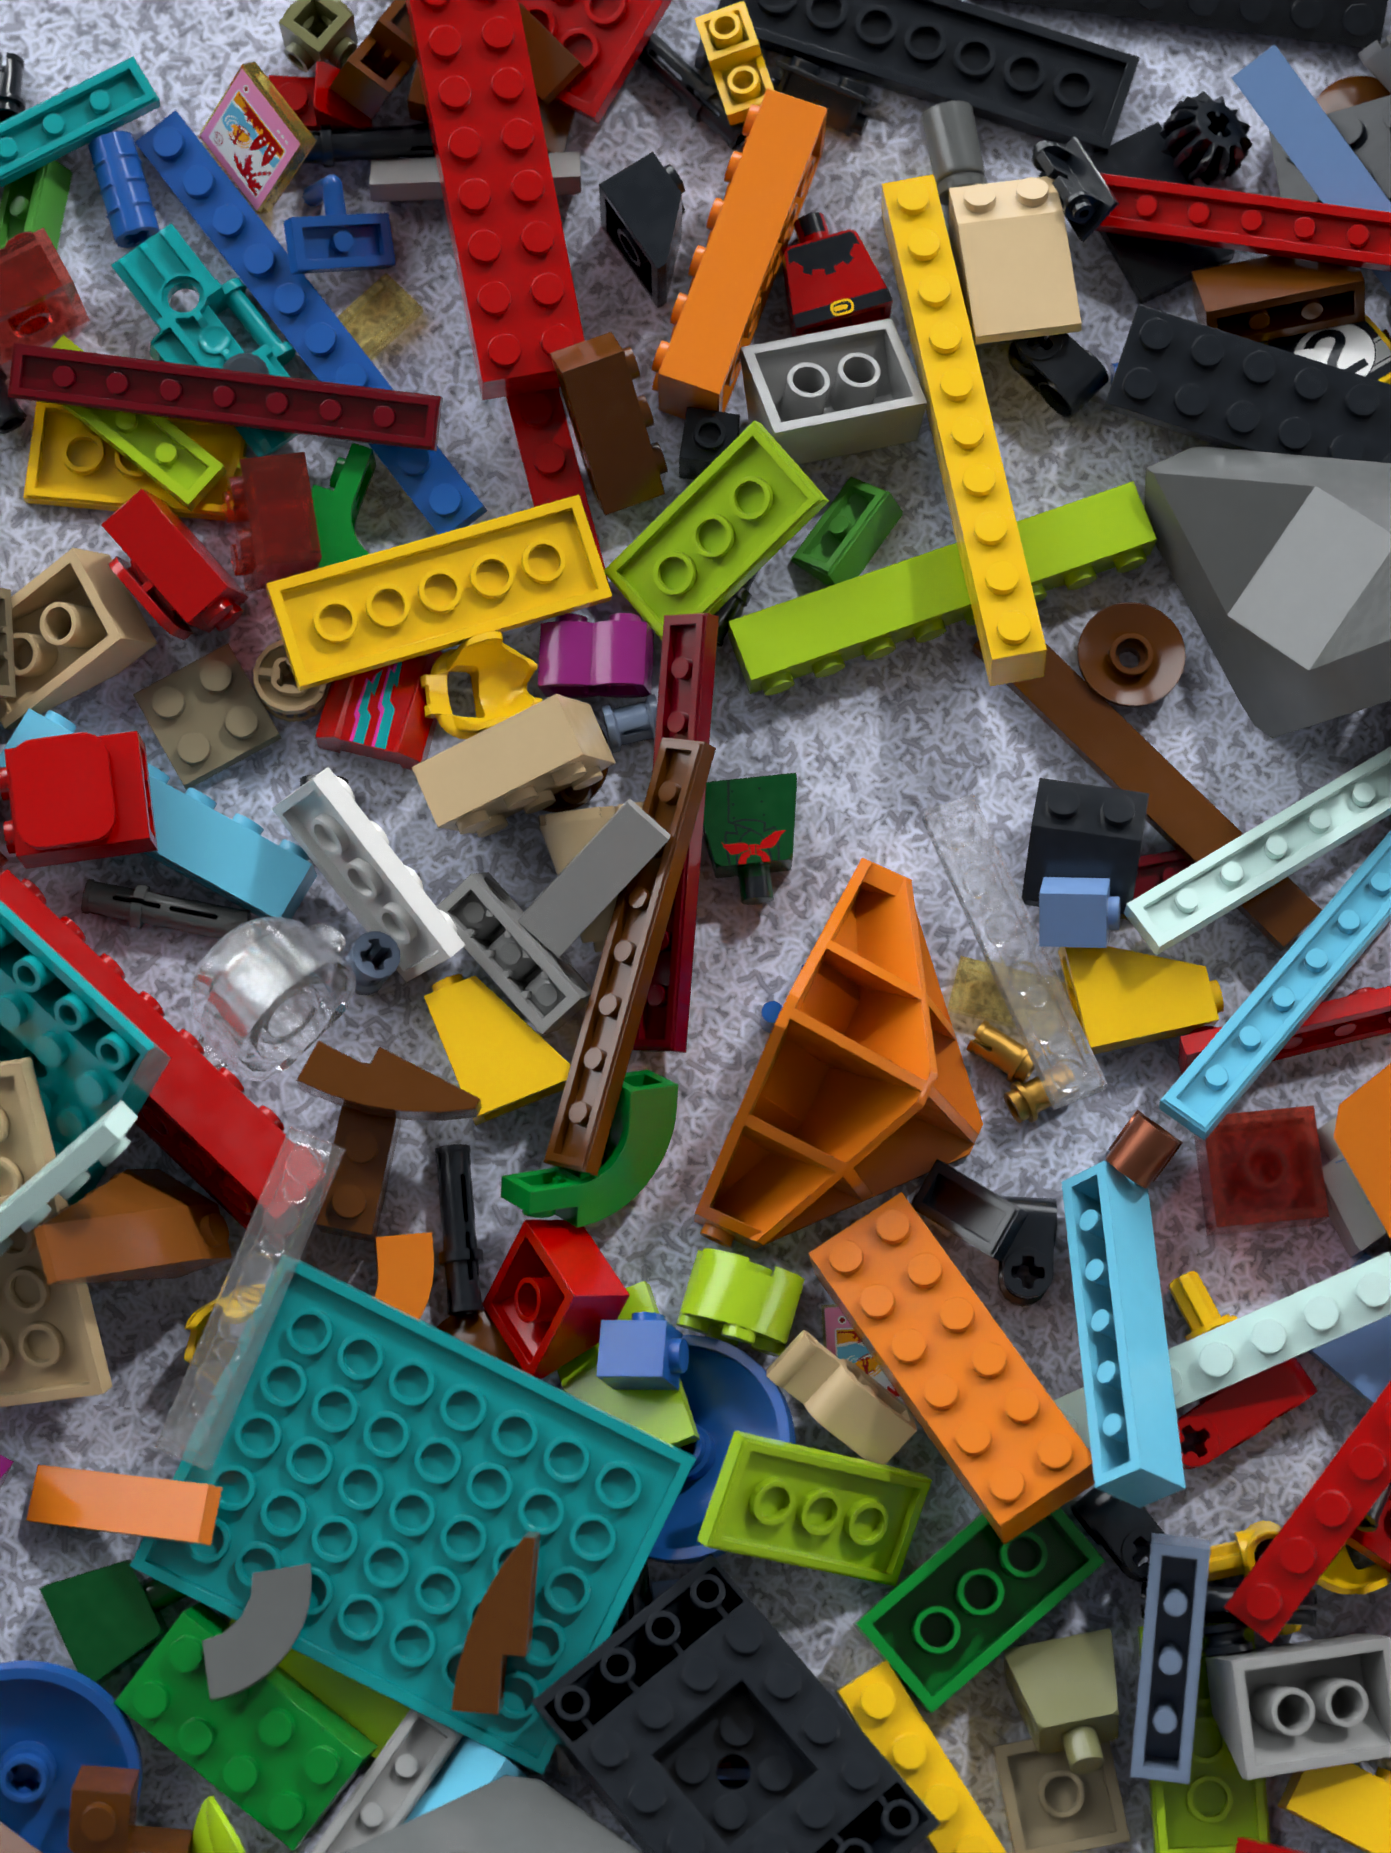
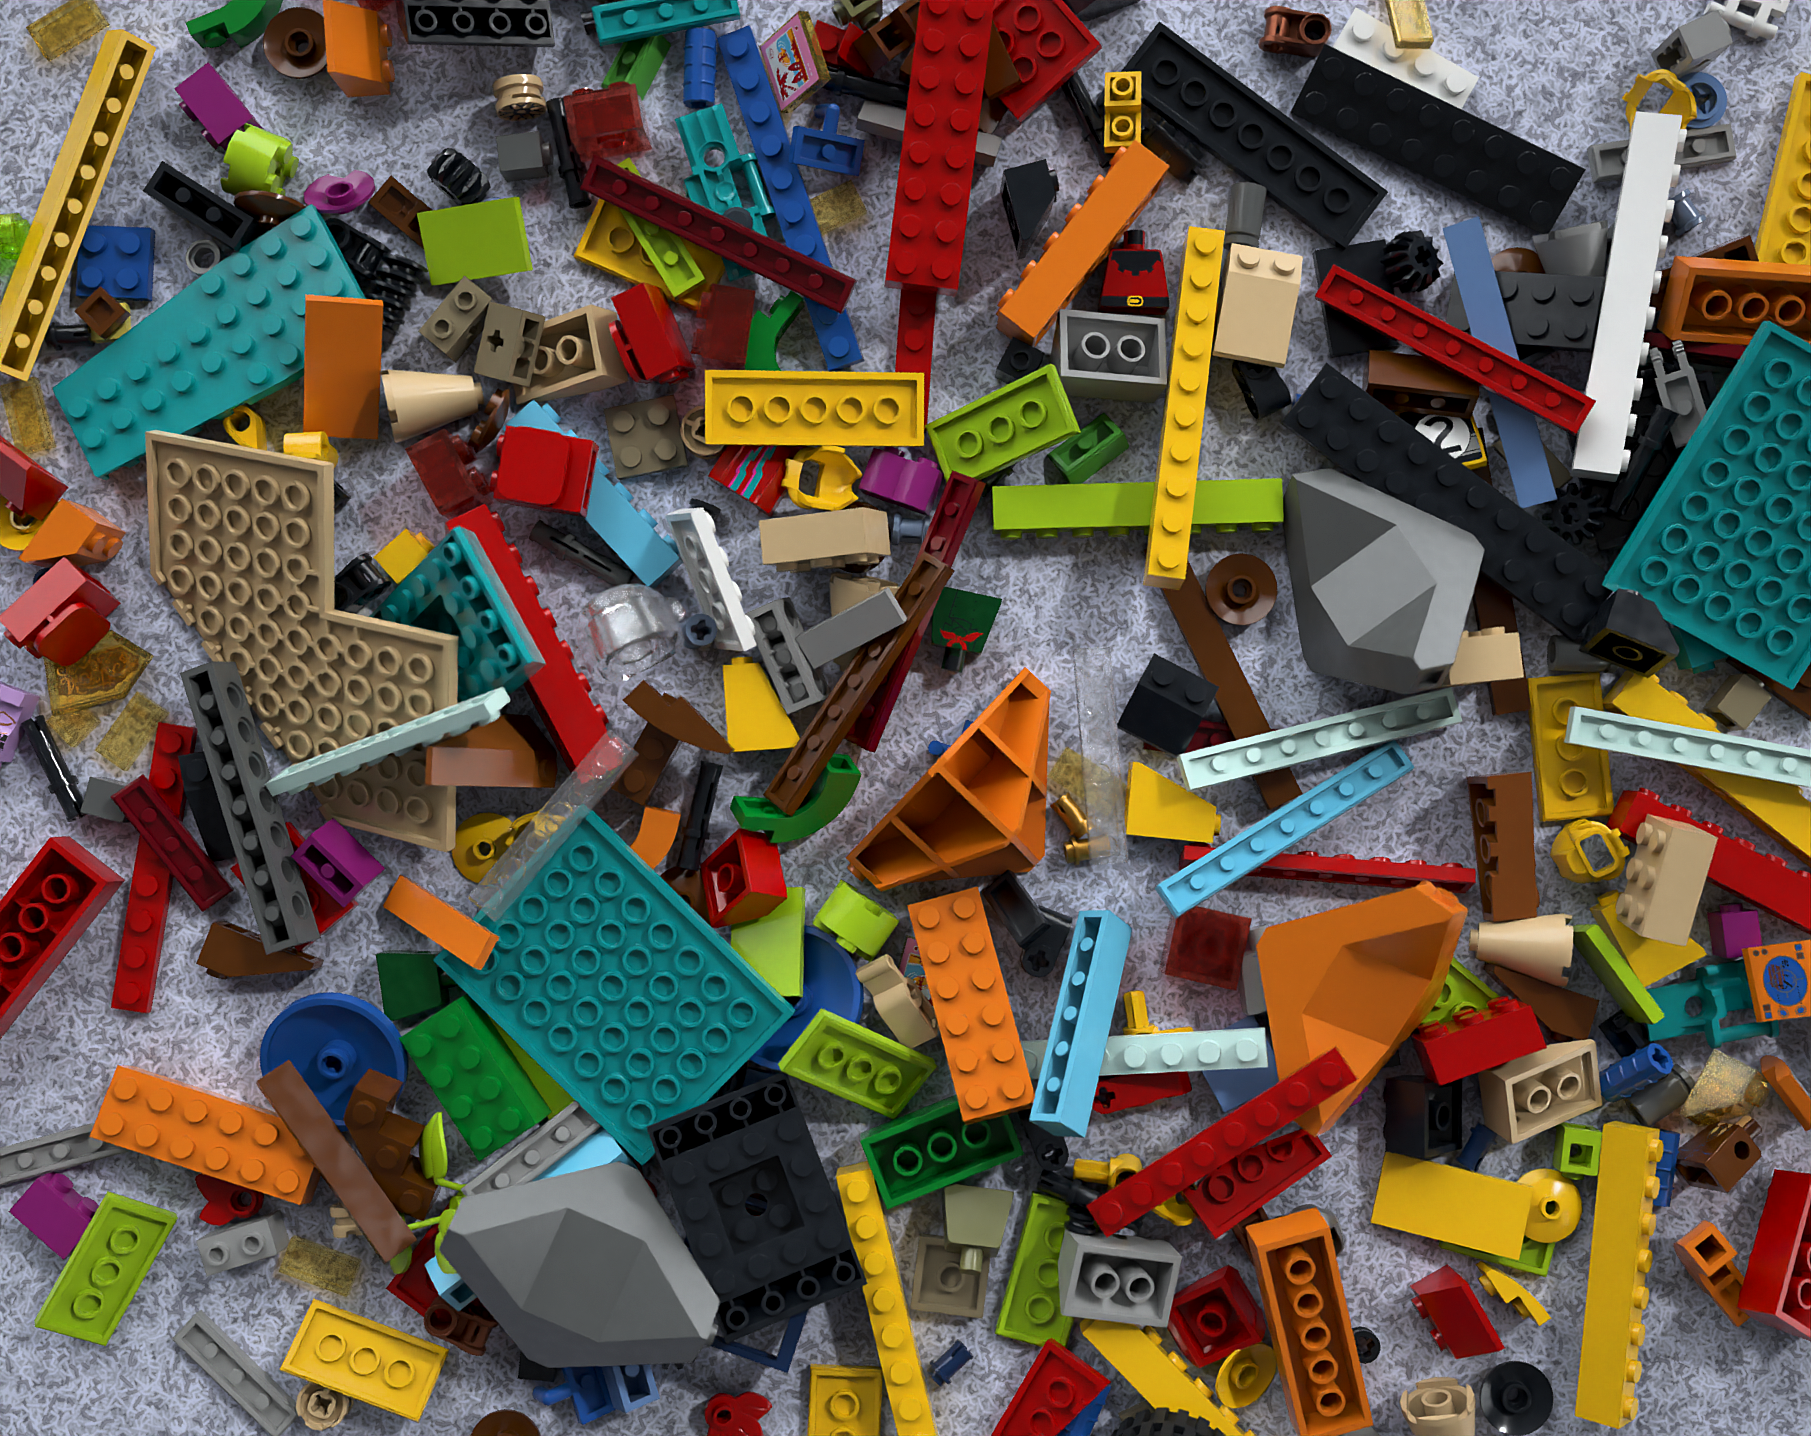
camera: 20 degrees right, 10 degrees up
(129, 1365) = (470, 834): none -> yellow dish
(262, 1634) = (498, 1031): dark grey tile -> none
(499, 1629) = (640, 1078): reddish brown slope -> none
(610, 422) = (959, 331): reddish brown brick -> none
(641, 1353) = (783, 935): brick -> none
(1077, 912) = (1147, 747): medium blue brick -> none
(1080, 186) = (1316, 267): black hinge -> none
(1142, 1150) = (1135, 908): copper piece -> none
(1170, 1658) = (1042, 1225): sand blue brick -> none

